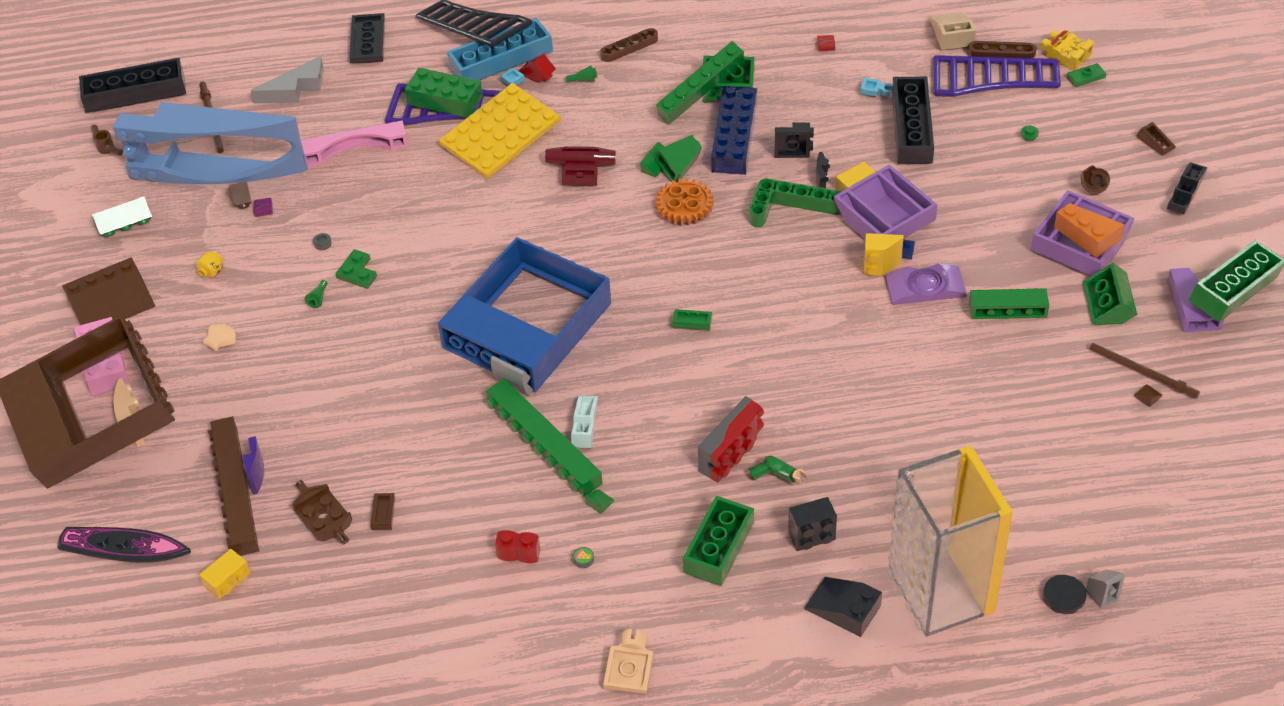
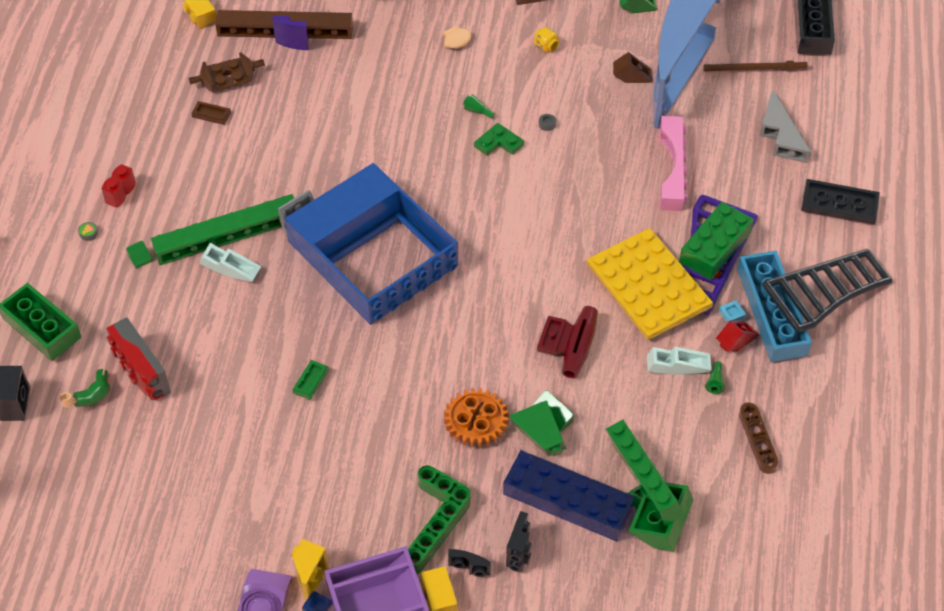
camera: 105 degrees right, 5 degrees up
(263, 207) = (611, 87): magenta tile -> none
(576, 99) = (678, 361): none -> light aqua slope

